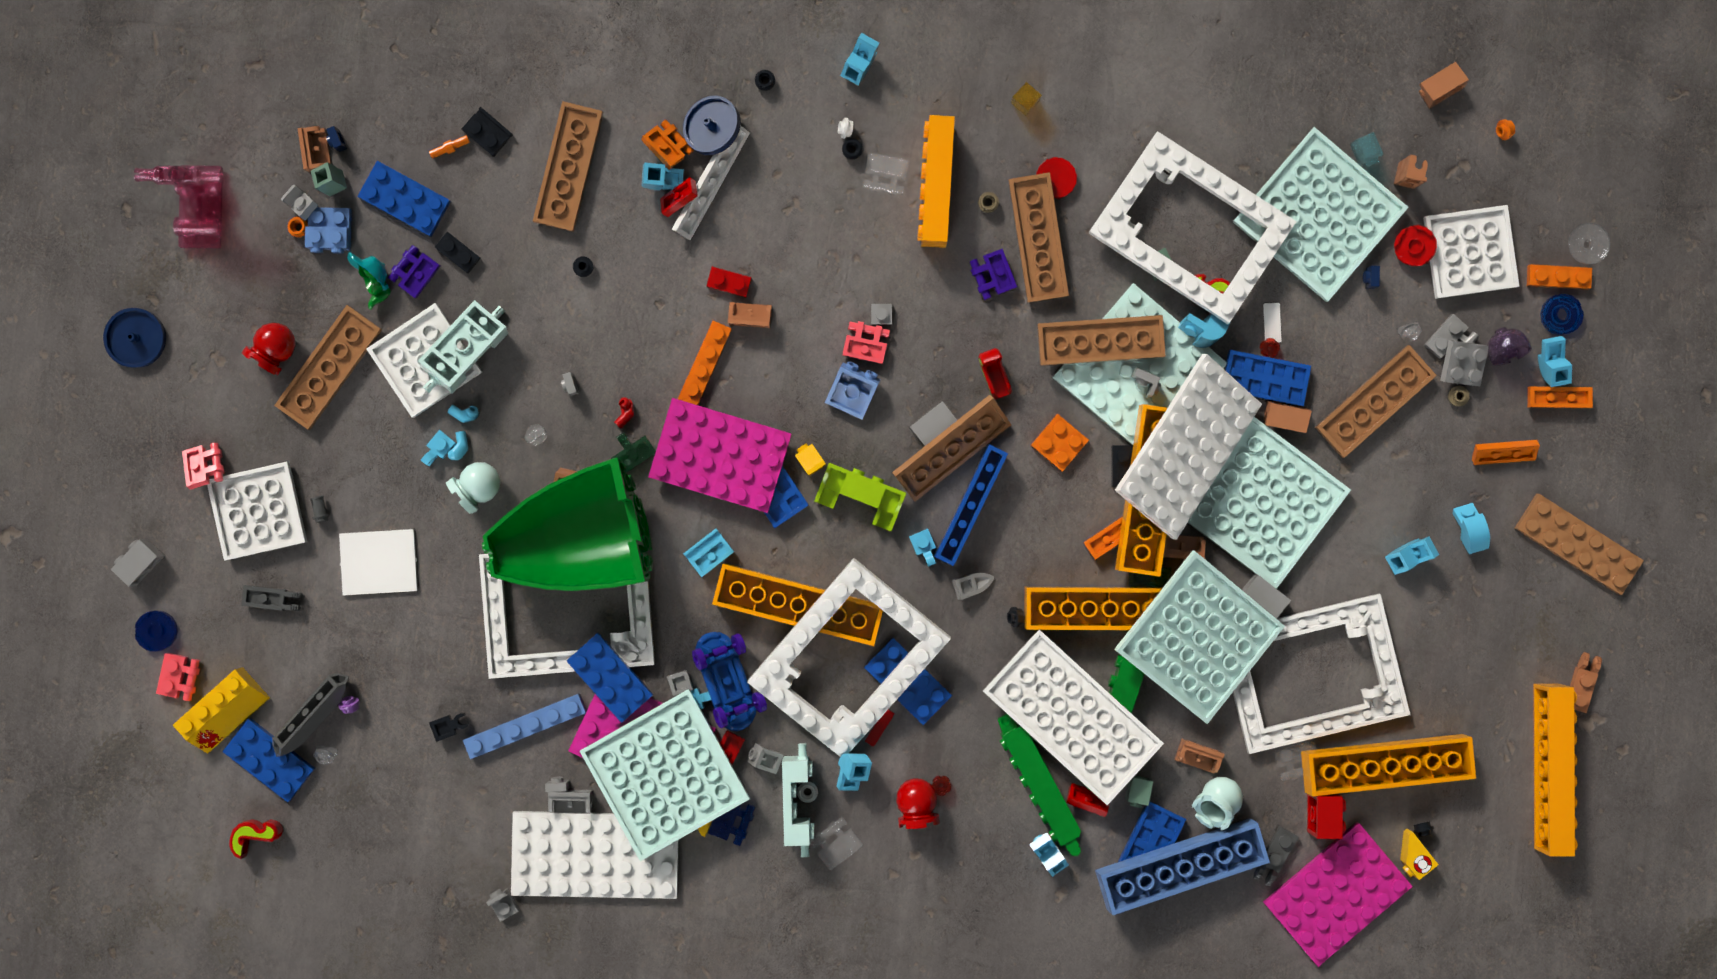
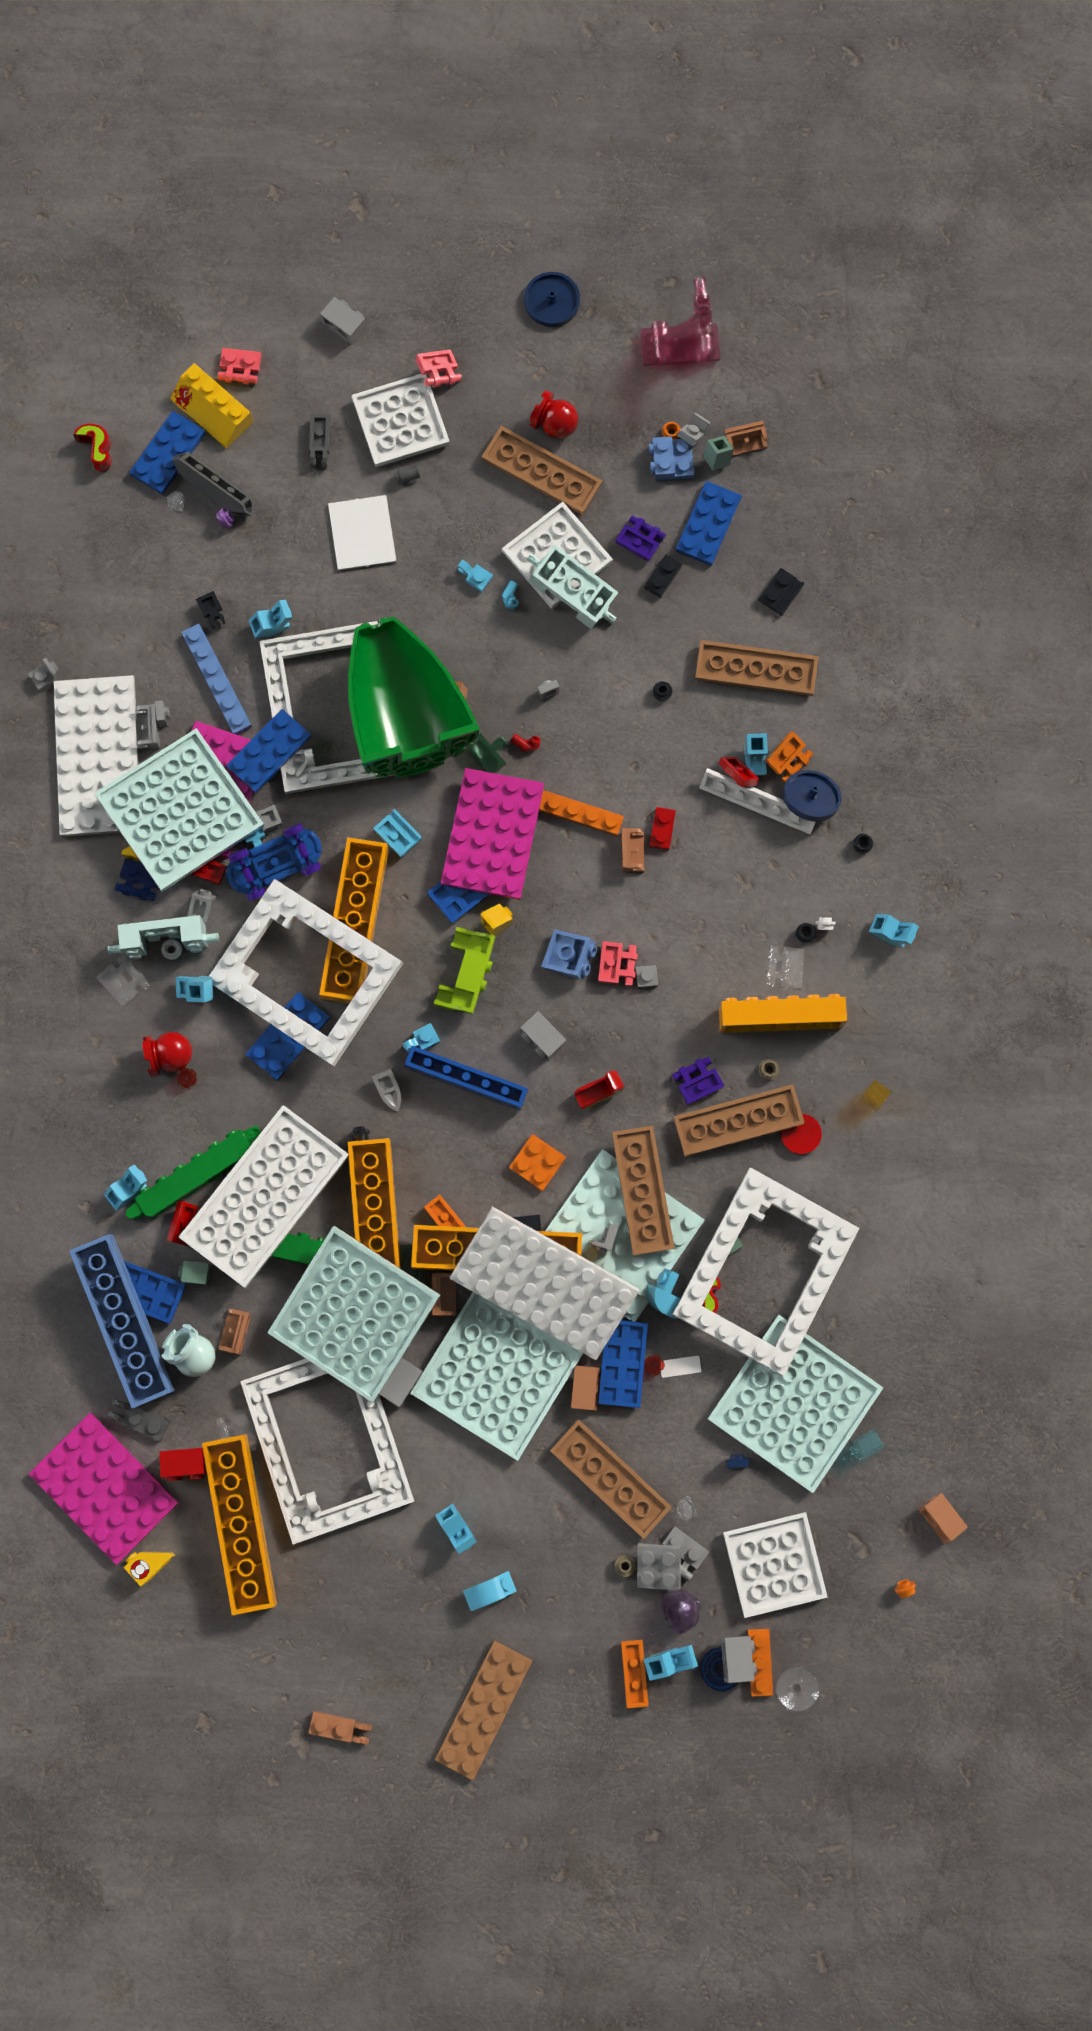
camera: 85 degrees right, 10 degrees down
(156, 630) = (281, 343): clear blue tile -> none
(335, 139) = (757, 456): dark blue plate -> none
(375, 276) = (632, 503): hair -> none
(449, 146) = (763, 559): orange bar -> none
(460, 448) = (478, 596): medium azure arm -> none
(468, 664) = (272, 621): none -> medium azure brick
(476, 484) = (443, 611): light aqua tile -> none
(535, 434) = (496, 662): clear plate -> none
(876, 731) = (240, 1012): red sticker -> none
(952, 448) = (521, 1054): medium nougat plate -> none
(1408, 175) = (844, 1491): nougat hinge -> none
(1415, 245) = (774, 1504): red tile -> none
(1423, 829) = (176, 1570): black plate -> none
(1505, 452) = (571, 1620): orange plate -> none
(1554, 769) = (246, 1700): light orange brick -> none
(1559, 296) = (738, 1659): none -> light grey brick

